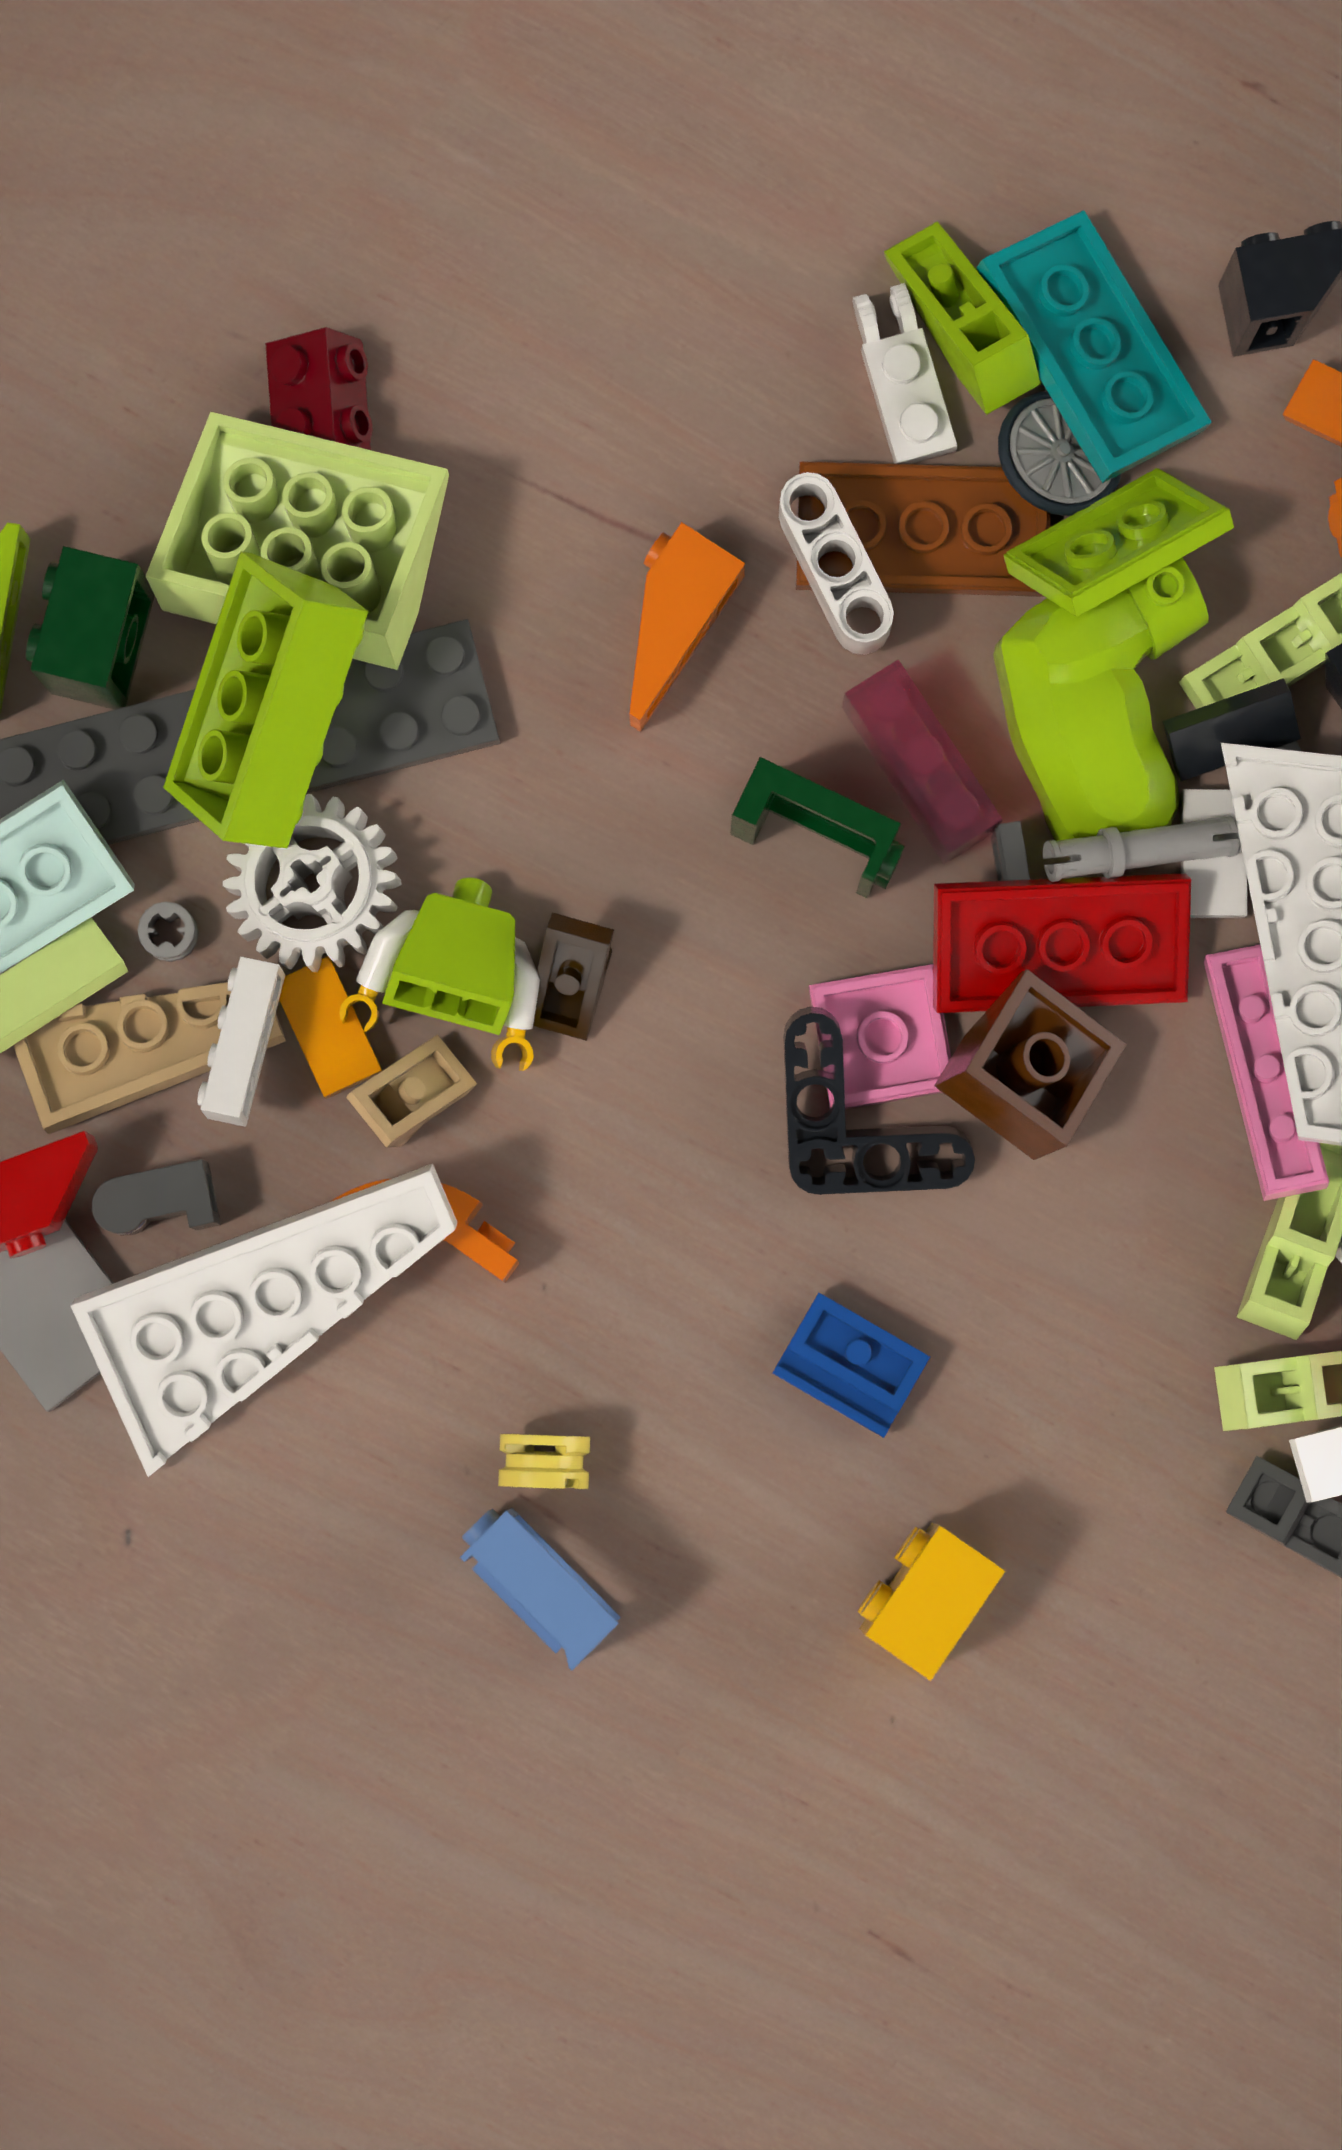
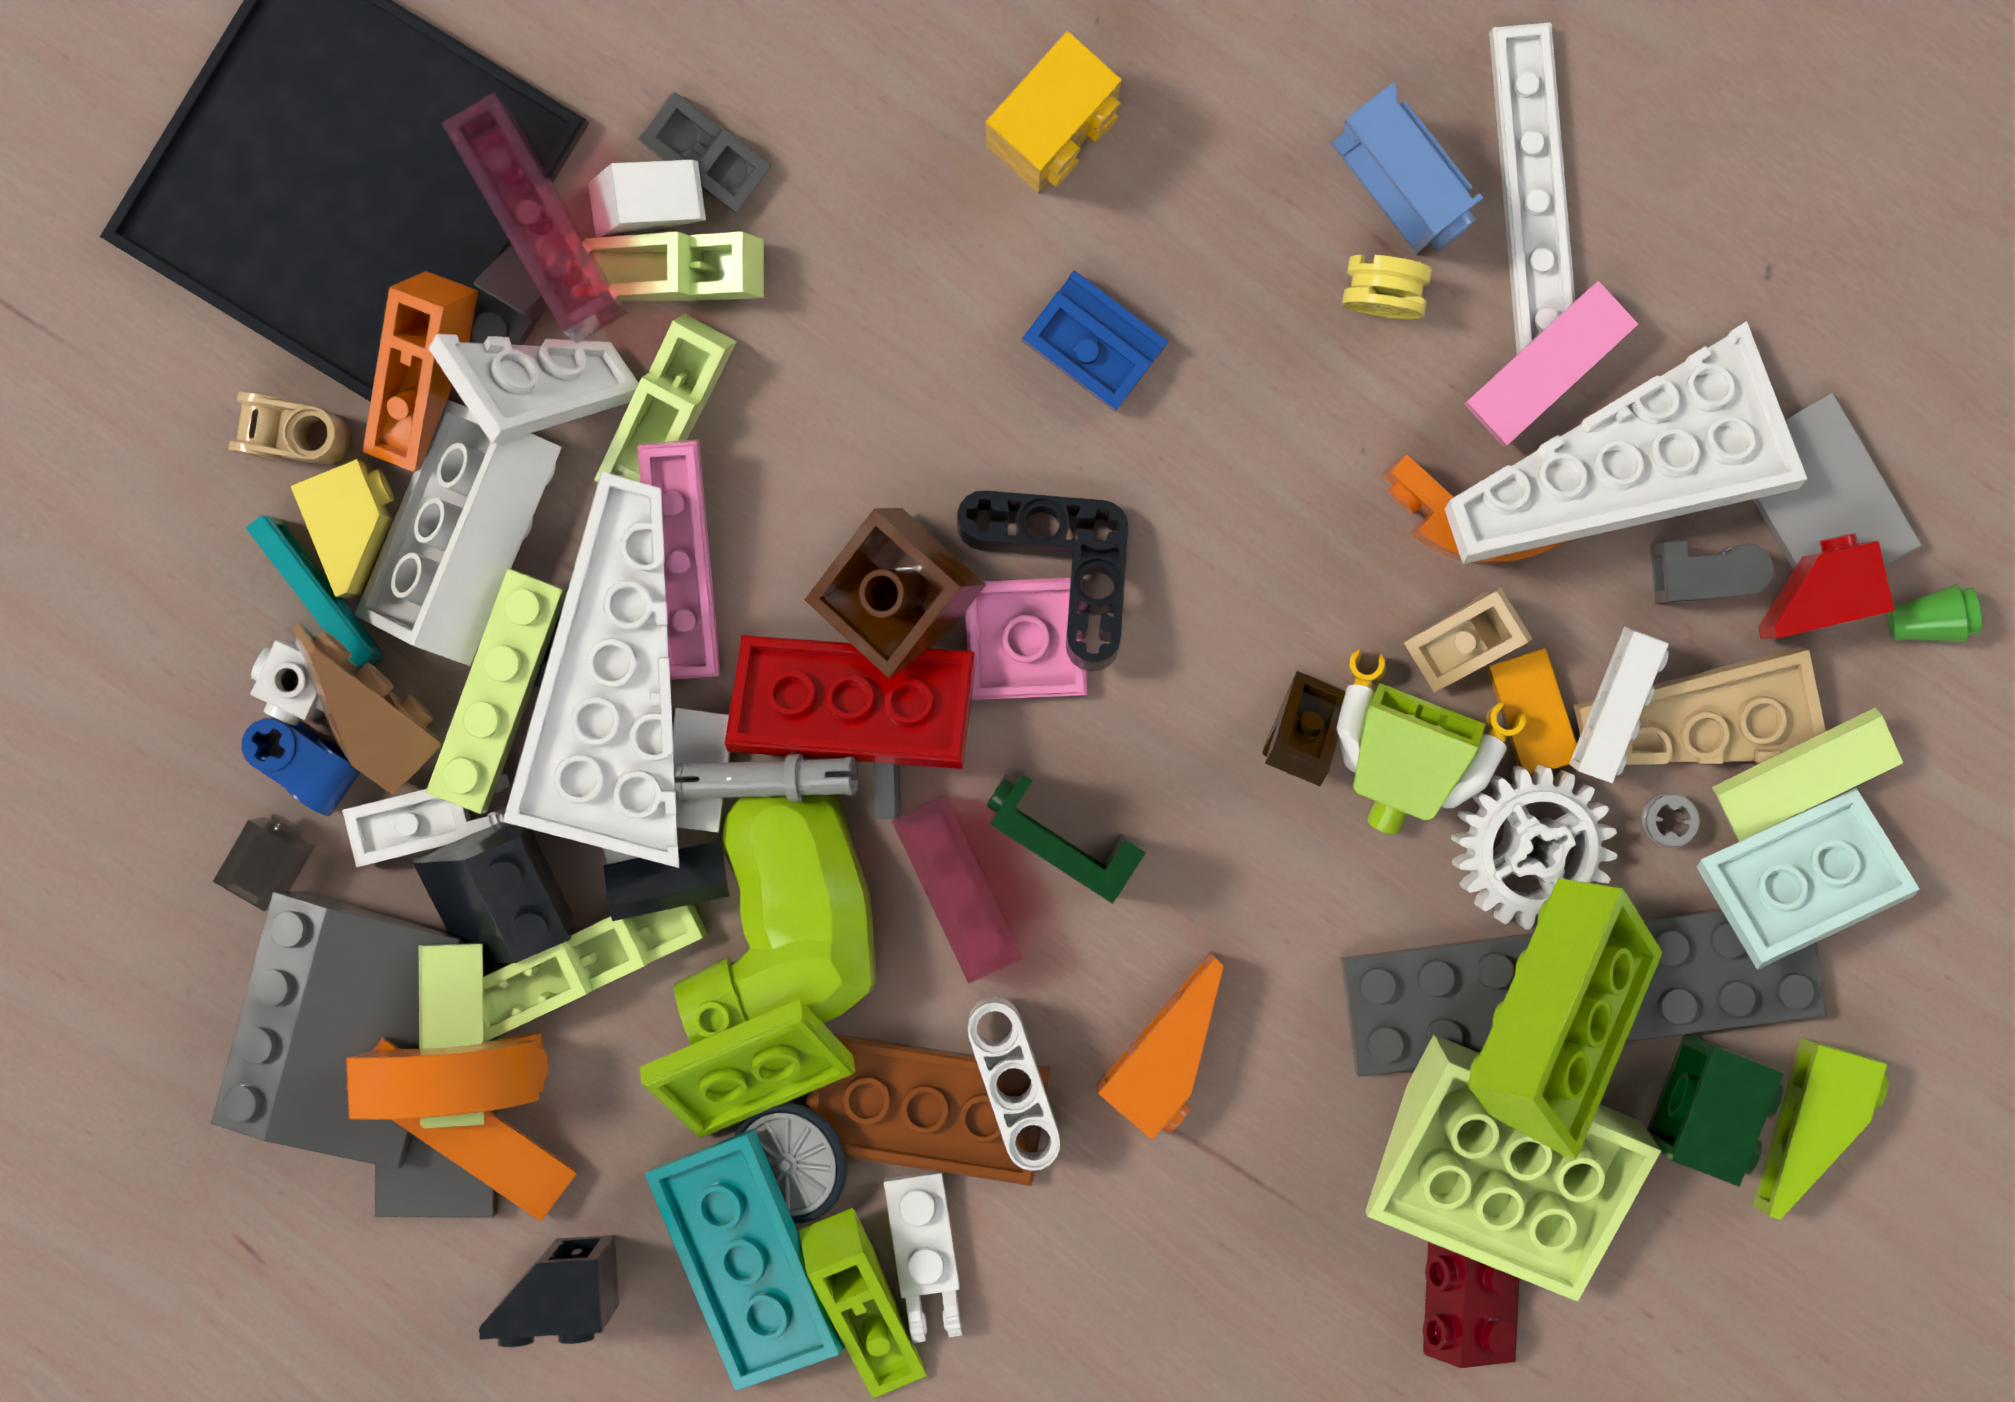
camera: 175 degrees left, 5 degrees up
(356, 1401) = (1551, 363): none -> bright pink tile
(391, 1580) = (1532, 176): none -> white tile

